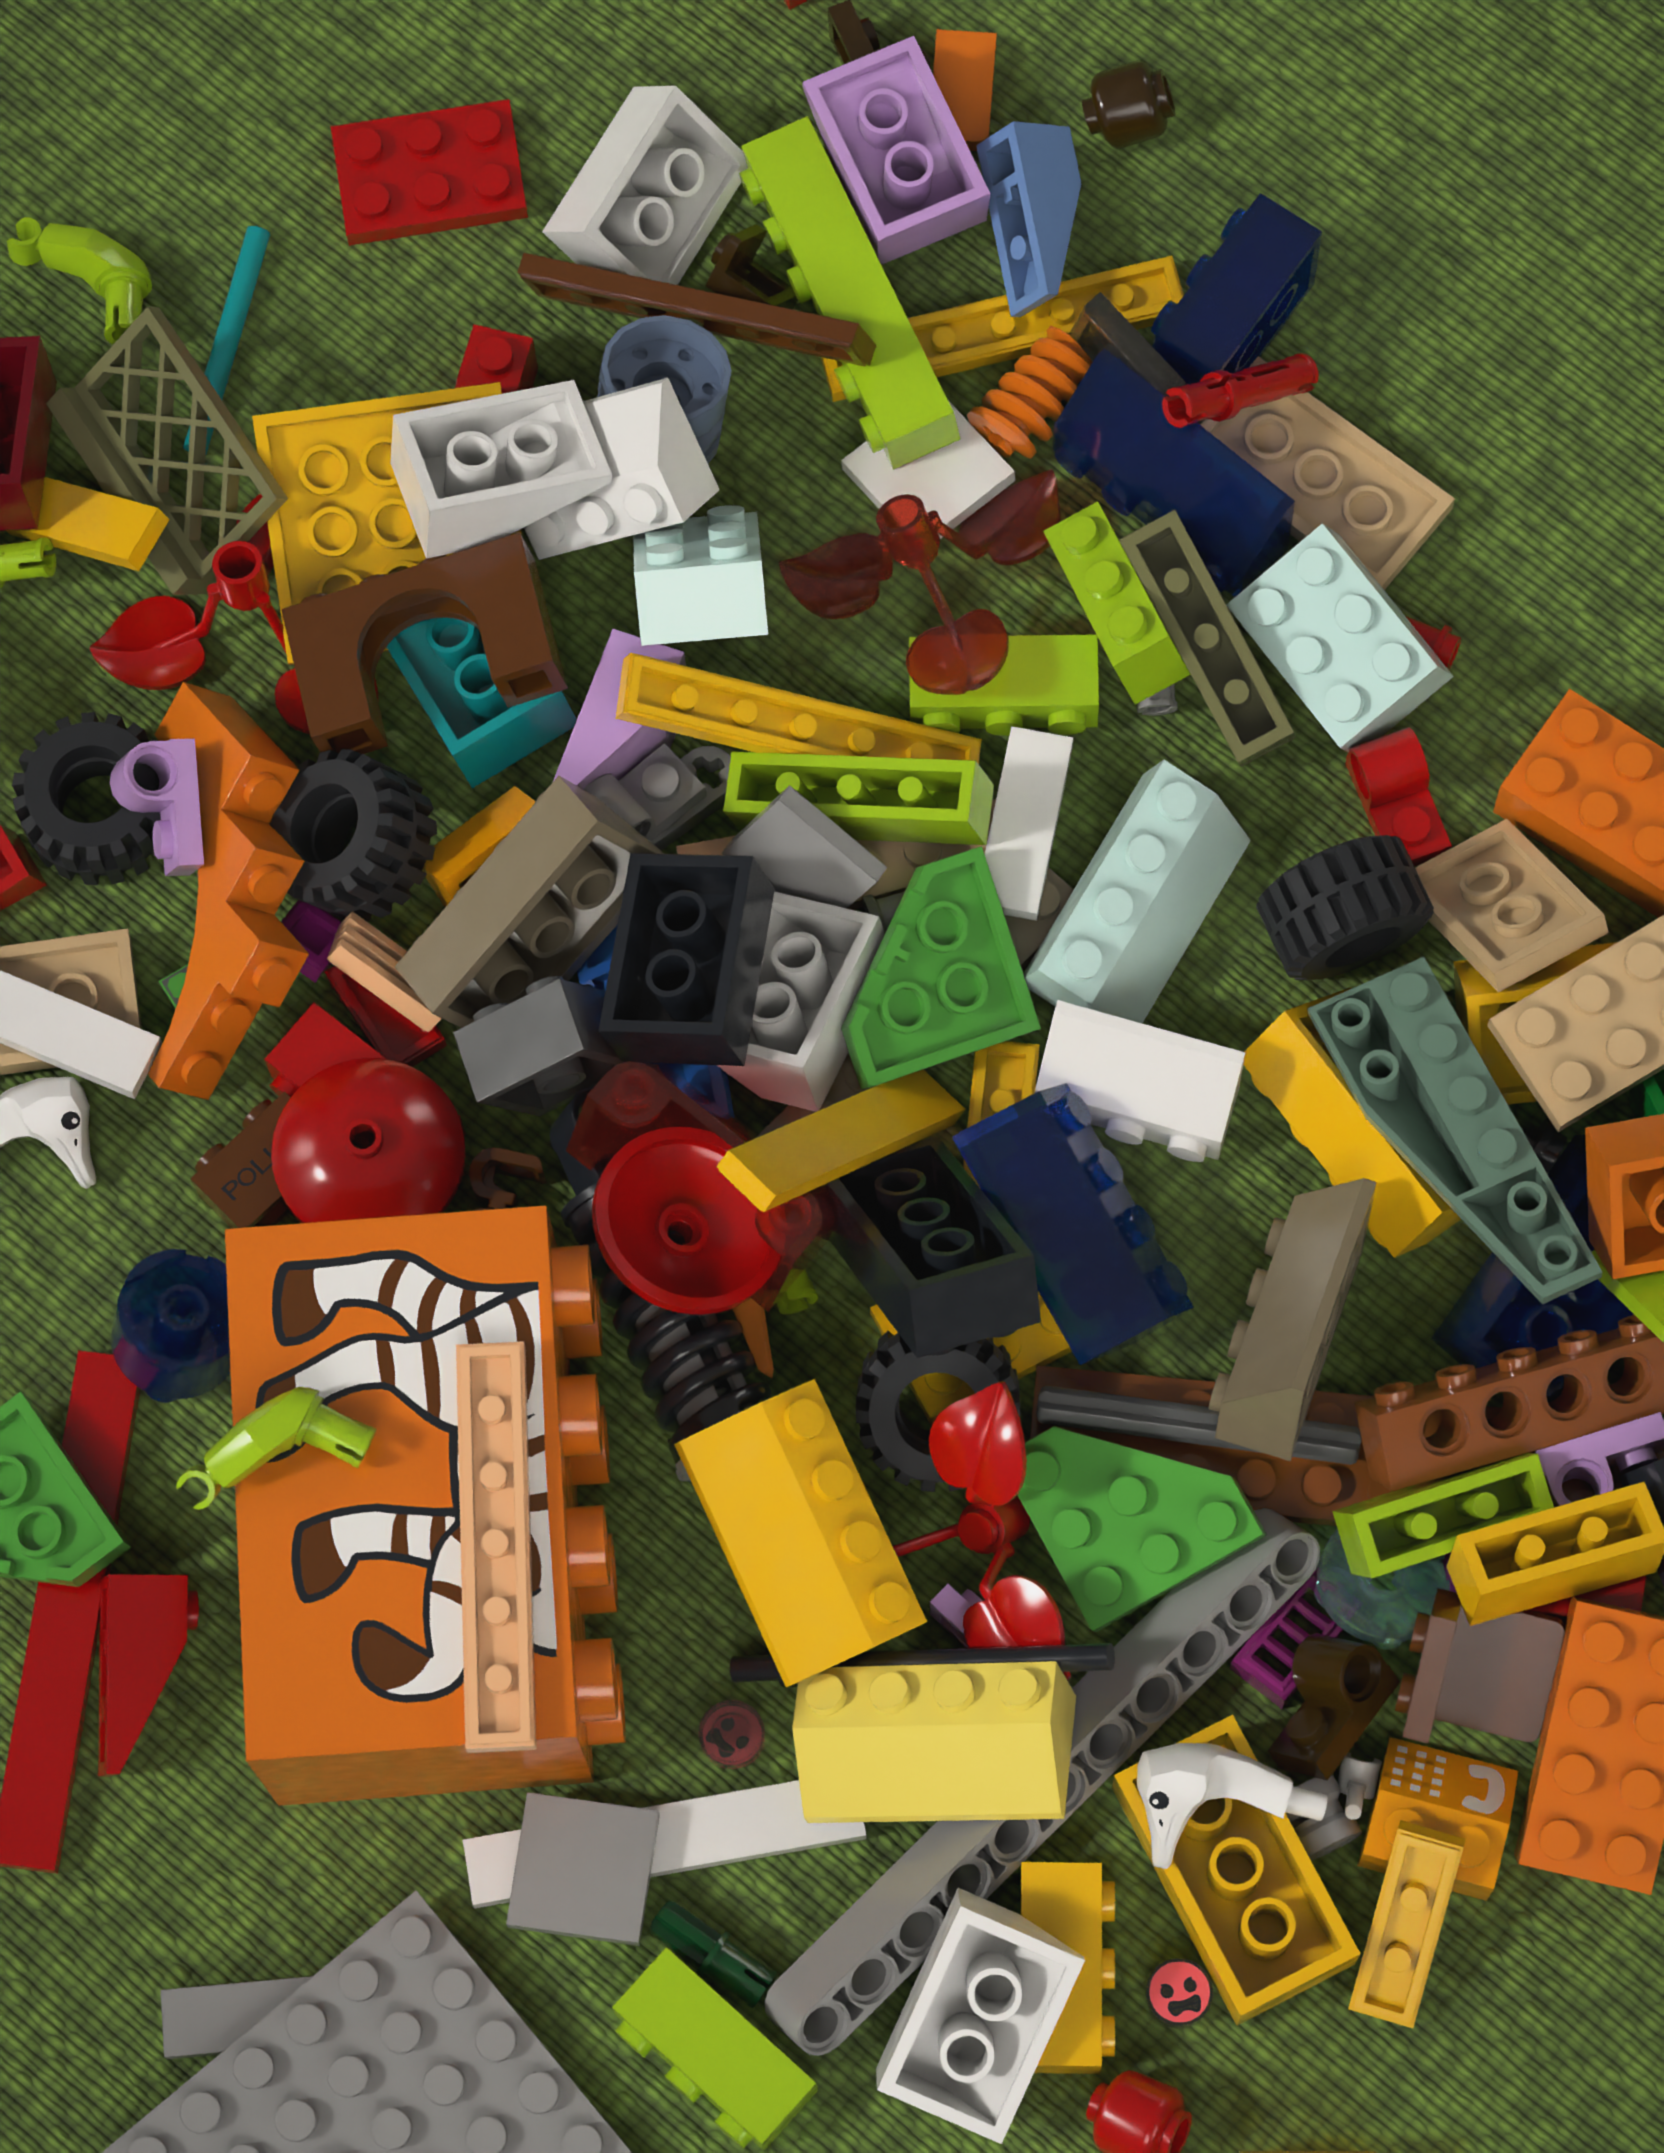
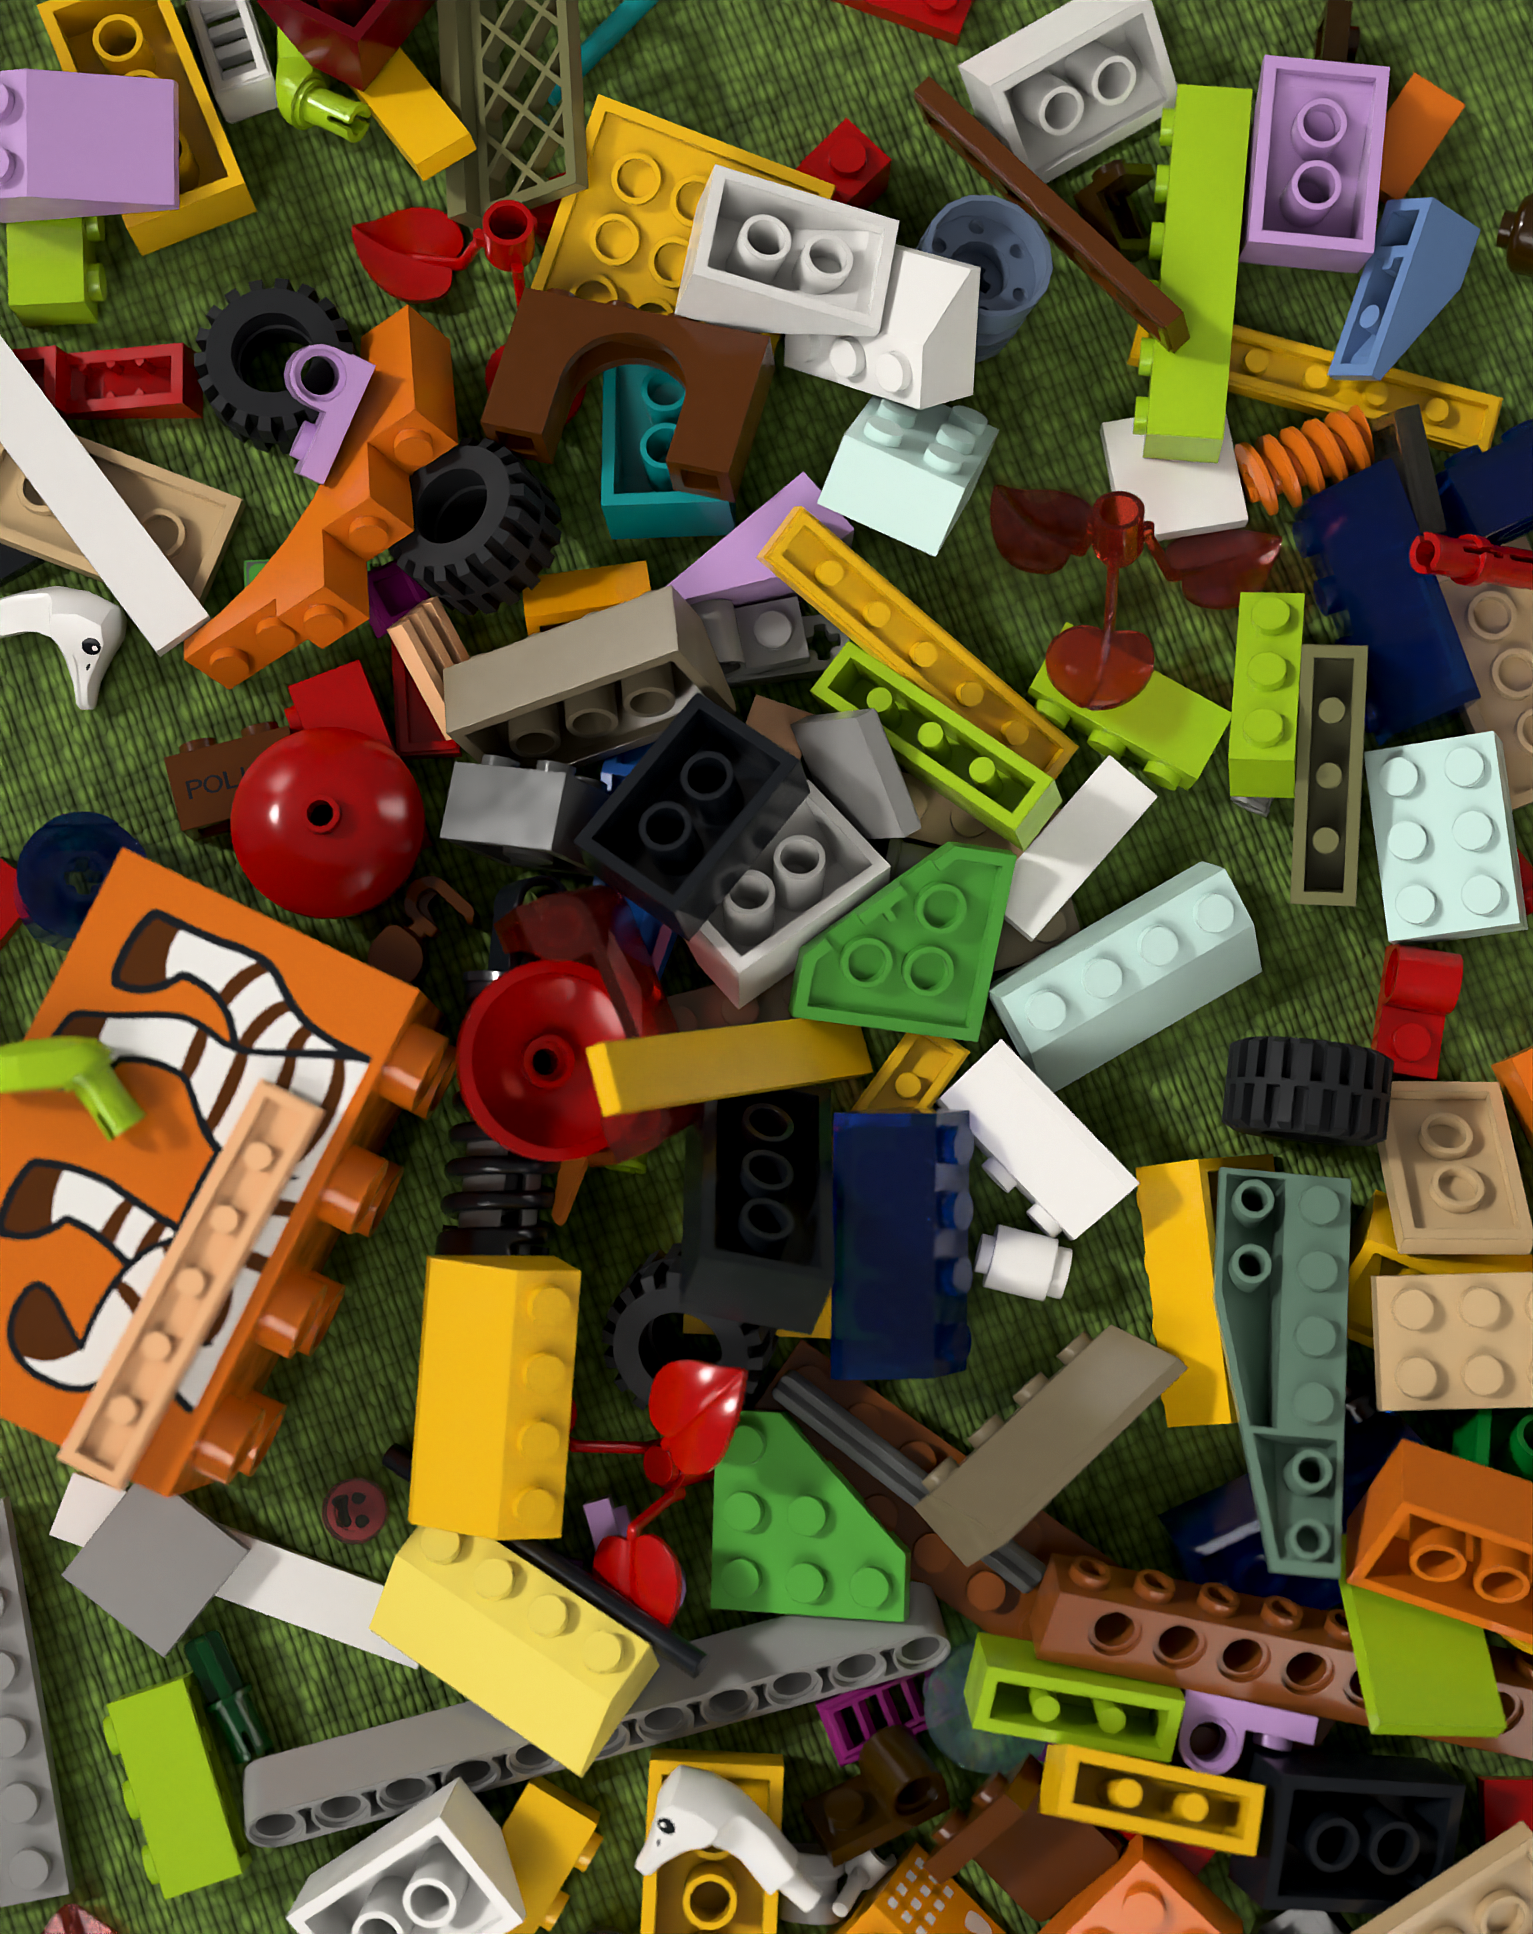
camera: 20 degrees right, 10 degrees up
(1190, 1193) = (1023, 1263): none -> white brick

